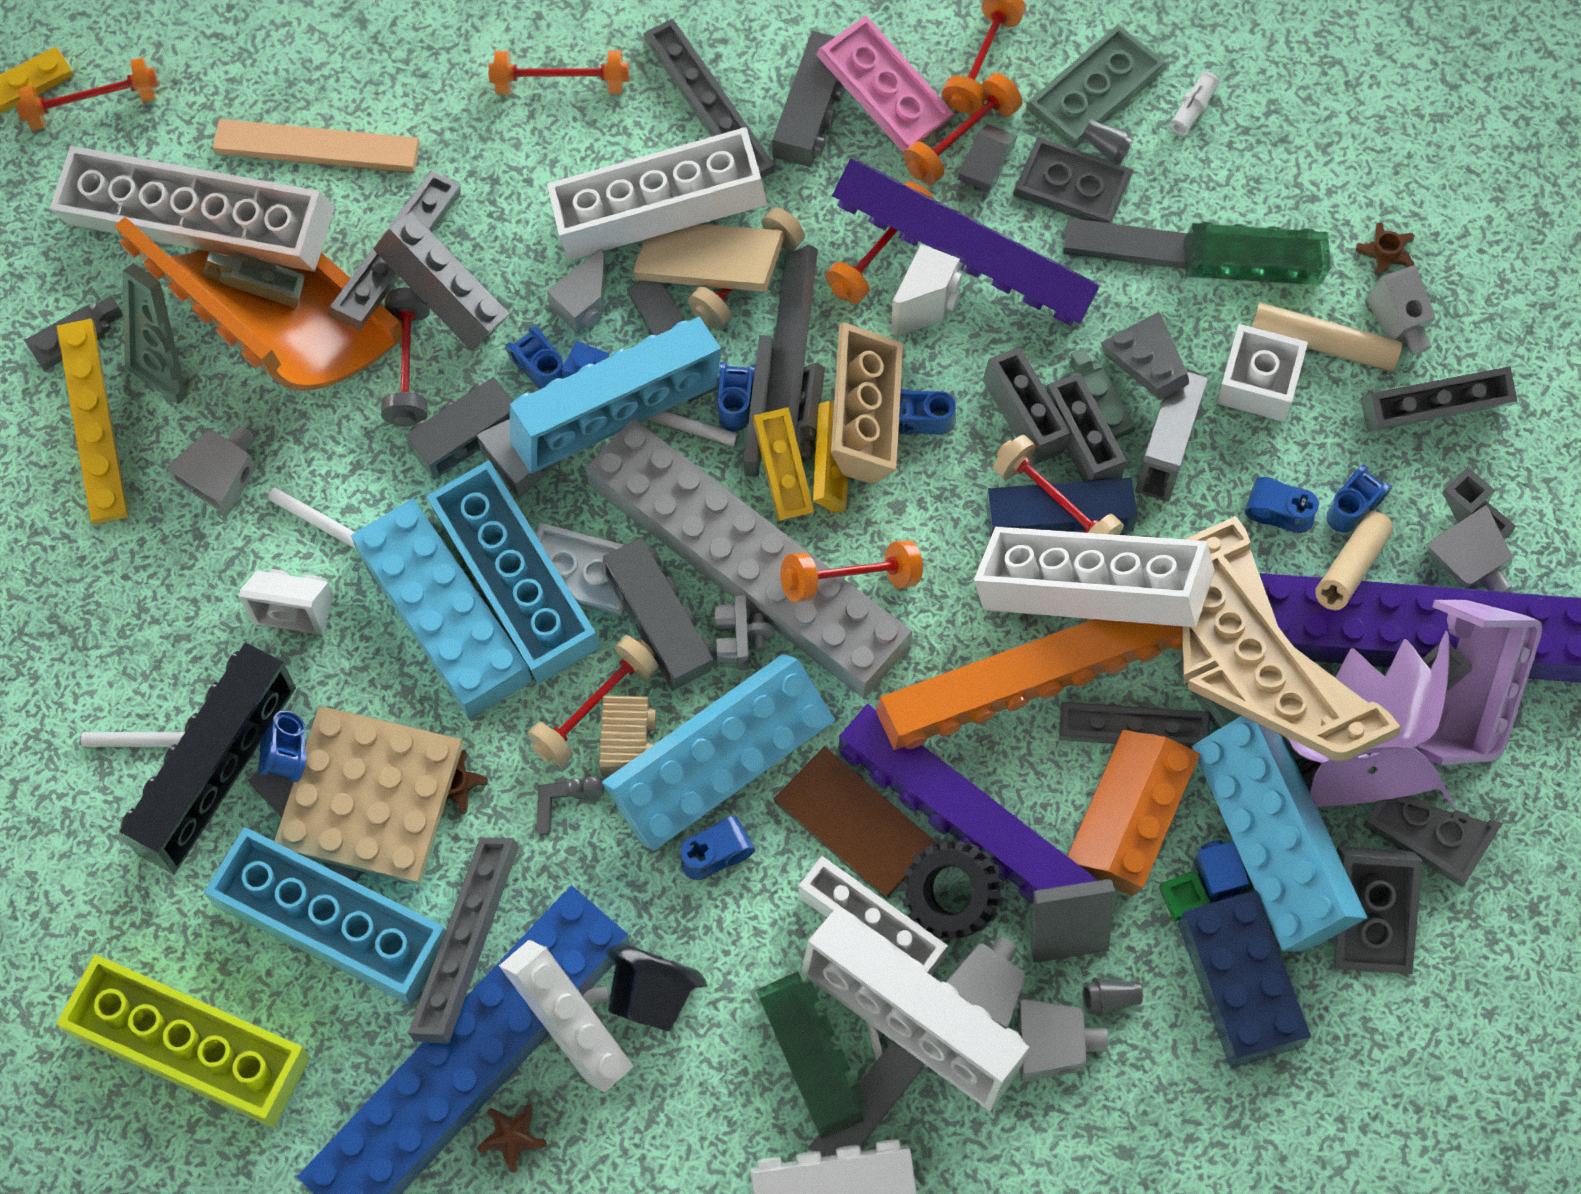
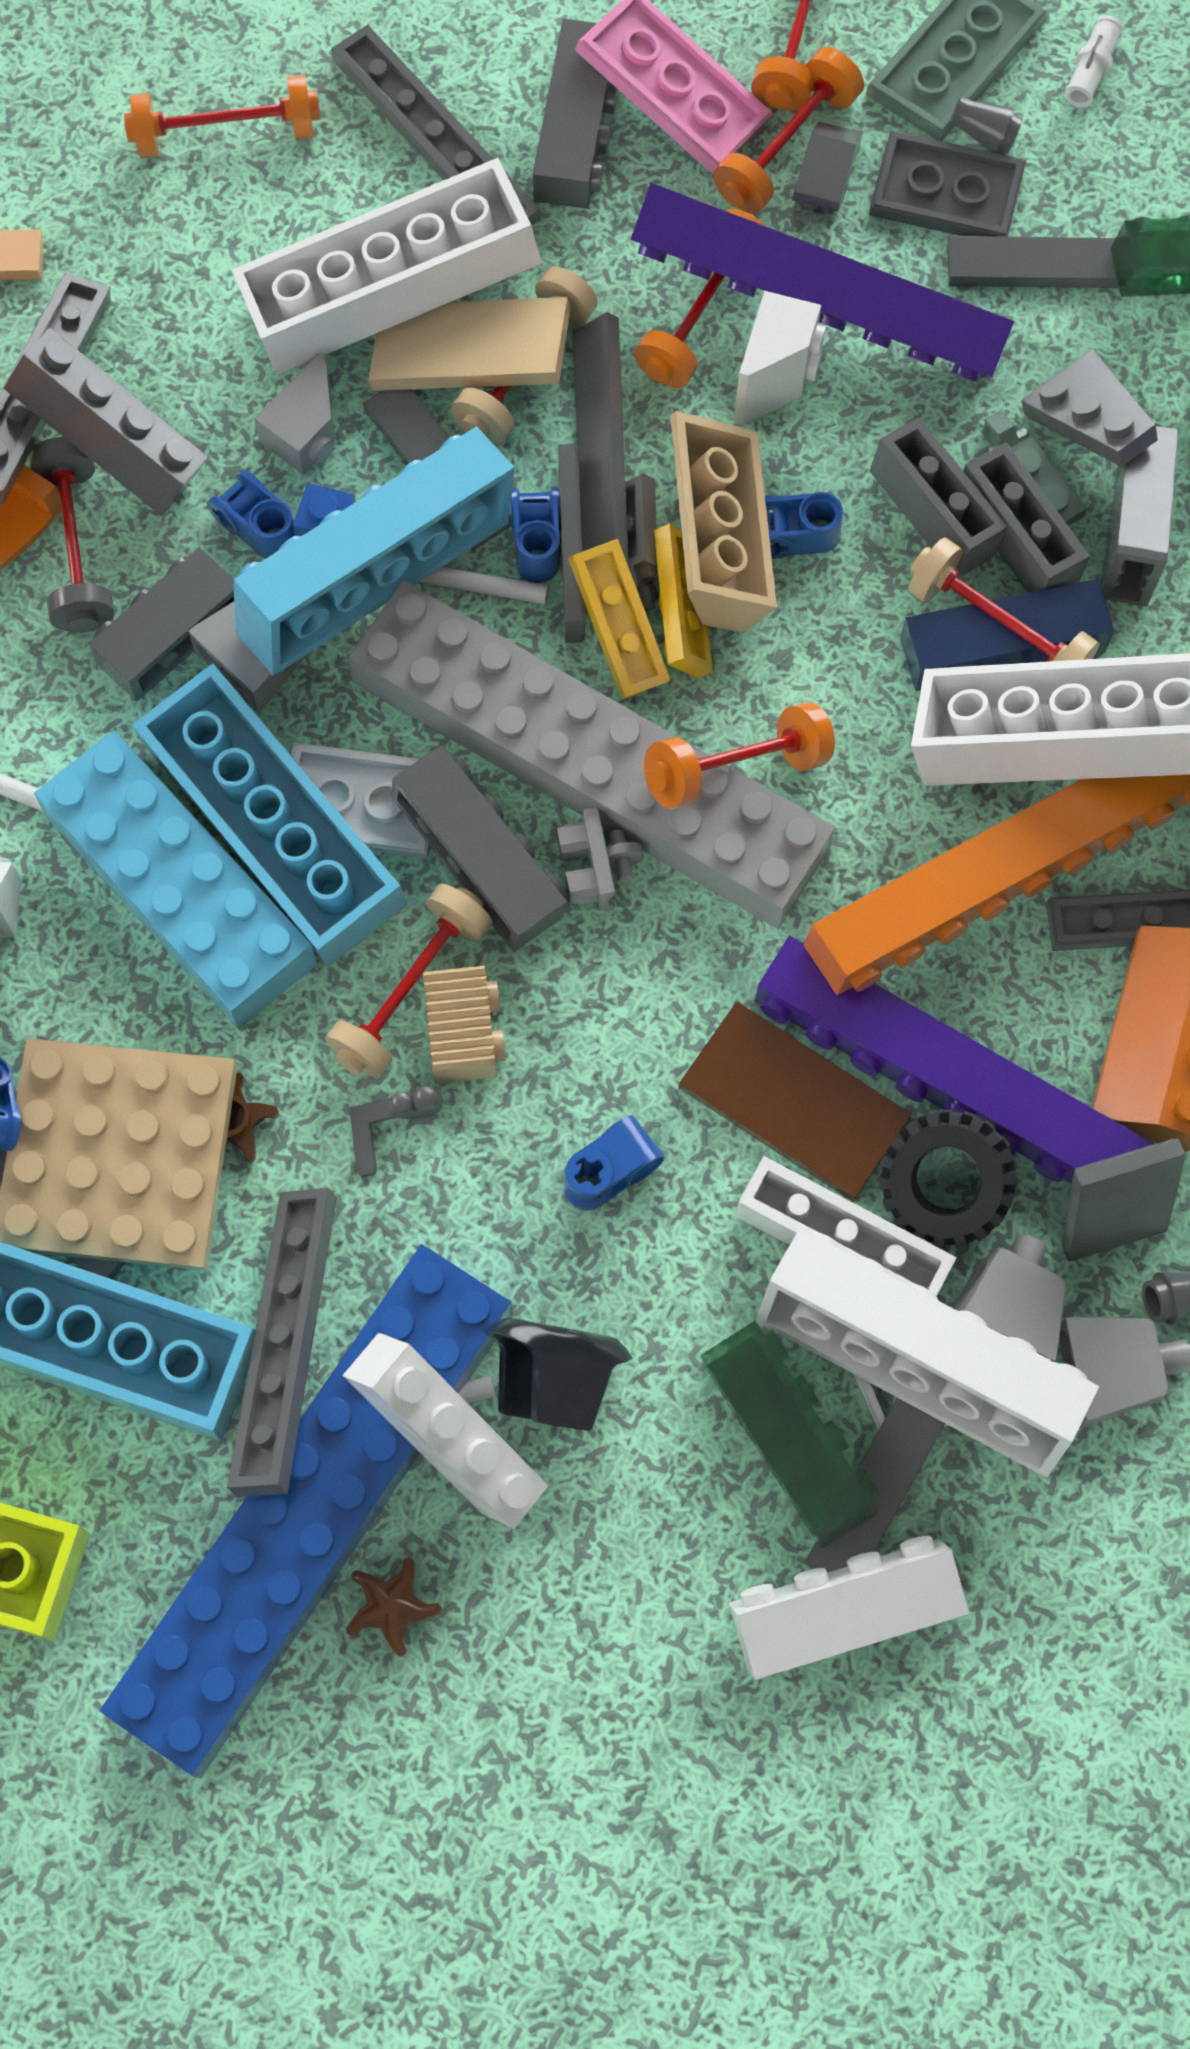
camera: 10 degrees left, 5 degrees up
(718, 751) = (595, 1029): medium azure brick -> none

